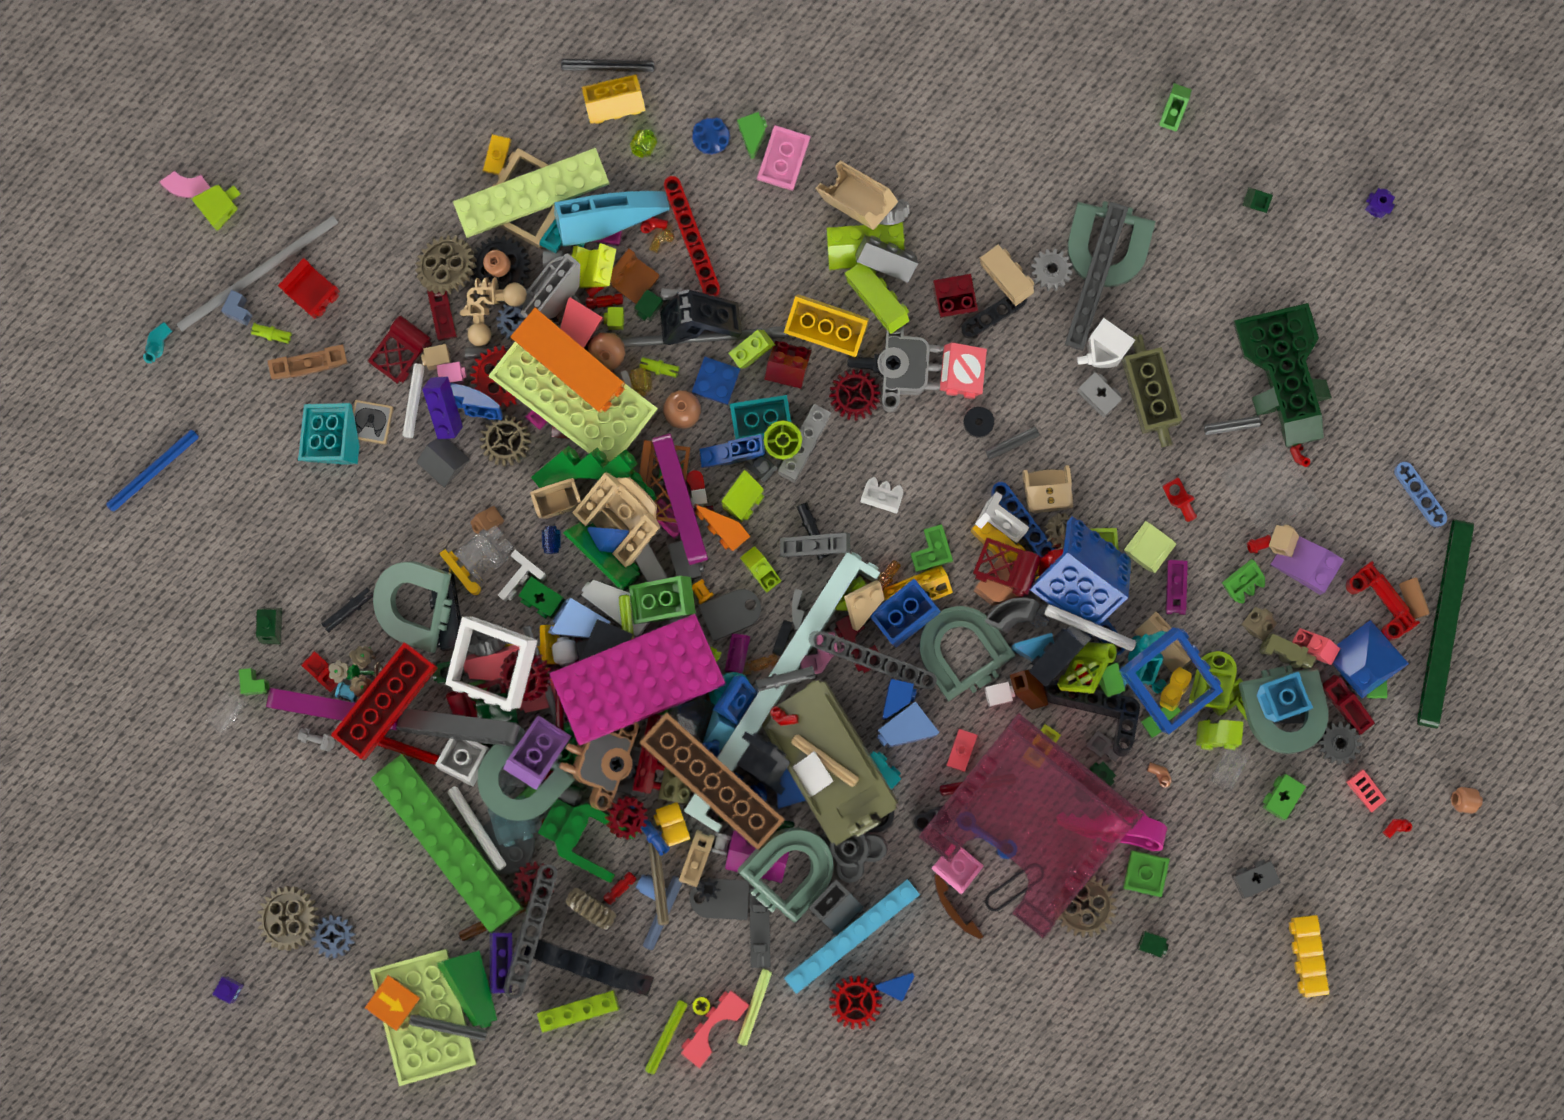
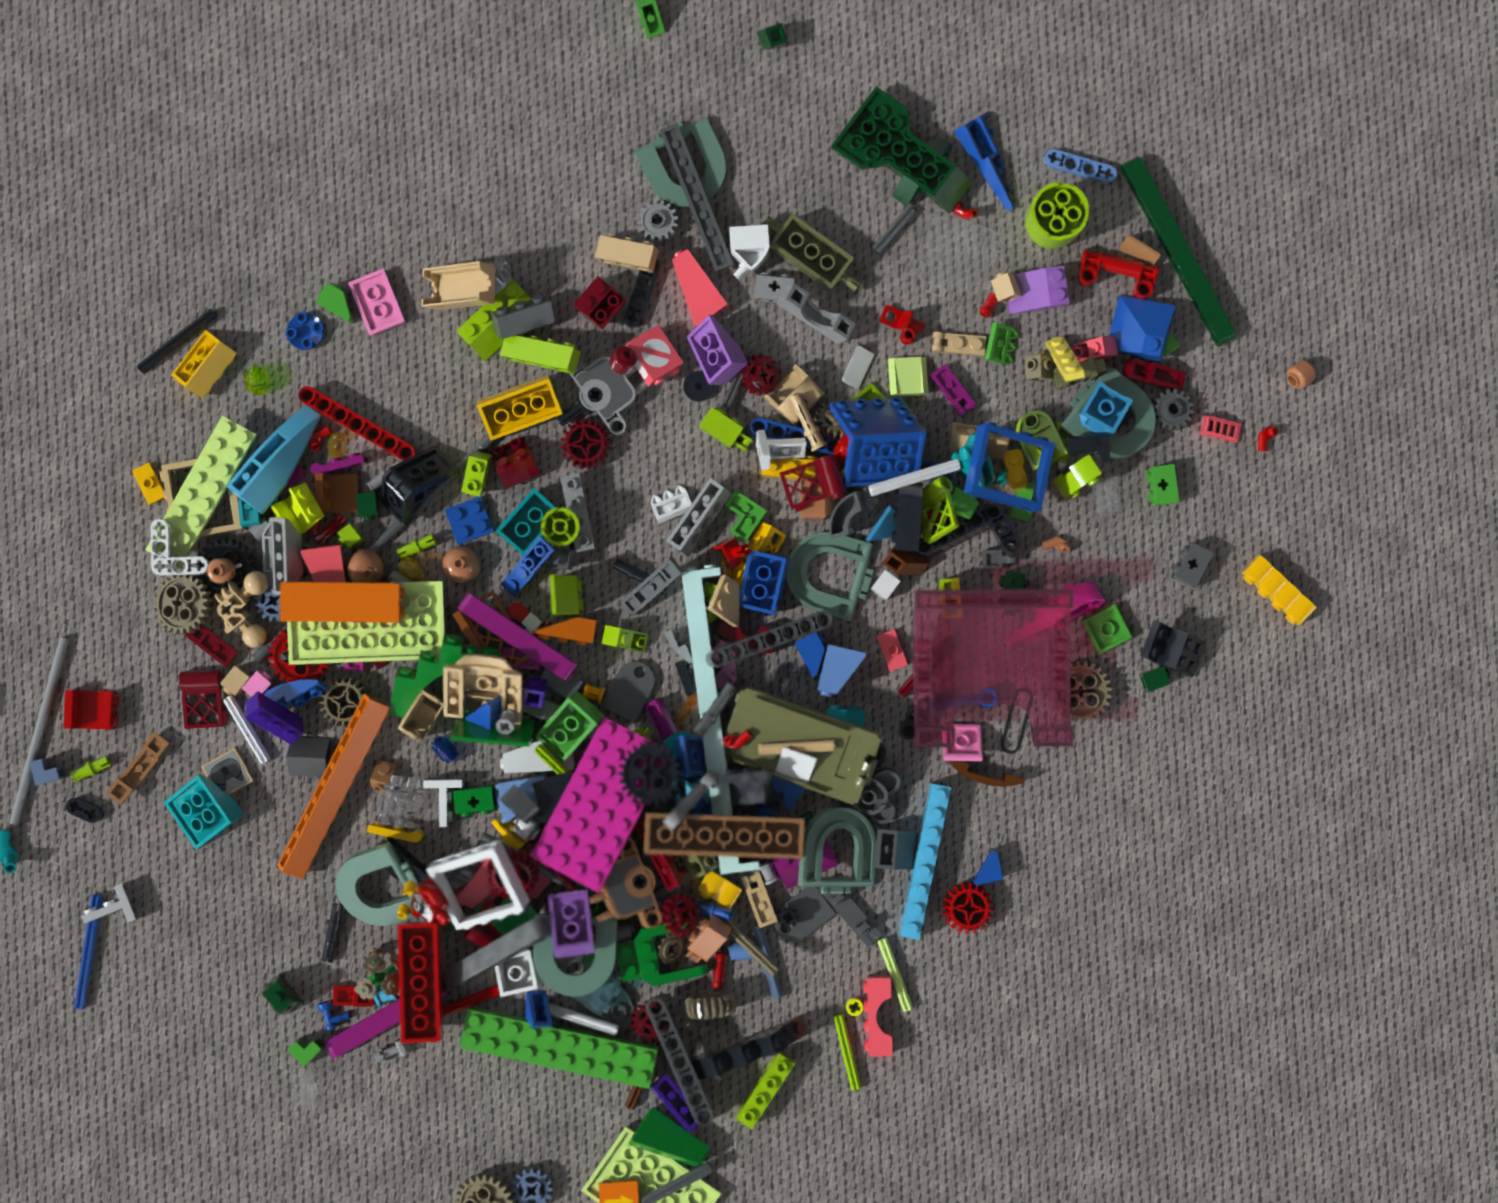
camera: 45 degrees left, 5 degrees up
(198, 450) = (111, 906): none -> white bracket
(243, 358) = (82, 814): none -> black beam
(289, 676) = (331, 1021): none -> blue piece
(440, 643) = (426, 902): none -> torso
(443, 497) = (333, 786): none -> orange brick
(455, 798) = (537, 1009): none -> blue slope
(463, 219) = (165, 556): none -> white beam
(574, 627) = (520, 804): none -> dark grey beam
(602, 841) = (676, 944): none -> dark tan gear
(617, 555) = (506, 722): none -> light grey bush
(632, 854) = (707, 939): none -> nougat brick
(650, 256) = (338, 465): none -> magenta plate
(657, 551) = (534, 691): none -> dark purple brick
(680, 675) = (632, 774): none -> black gear
(692, 732) = (690, 800): none -> light grey piece
(895, 522) = (698, 517): none -> light grey brick
(900, 570) = (733, 551): none -> red bracket
(936, 353) = (623, 360): none -> dark red head
(972, 471) = (724, 429): none -> lime brick
(1014, 406) = (716, 351): none -> medium lavender slope
(1033, 458) = (764, 381): none -> dark red gear
(1038, 527) = (809, 433): none -> tan pin
(1039, 350) = (697, 288): none -> coral slope
(1116, 507) = (857, 367): none -> white slope
(1121, 457) = (832, 325): none -> light grey arch
(1171, 518) = (907, 341): none -> red pin
(1186, 932) = (1173, 649): none -> black bracket
(1211, 555) = (959, 344): none -> tan plate
(1249, 713) = (1090, 443): none -> black bracket
(1285, 632) = (1064, 359): none -> light yellow plate
(1352, 426) = (979, 144): none -> blue wedge
(1358, 526) = (1053, 230): none -> lime brick

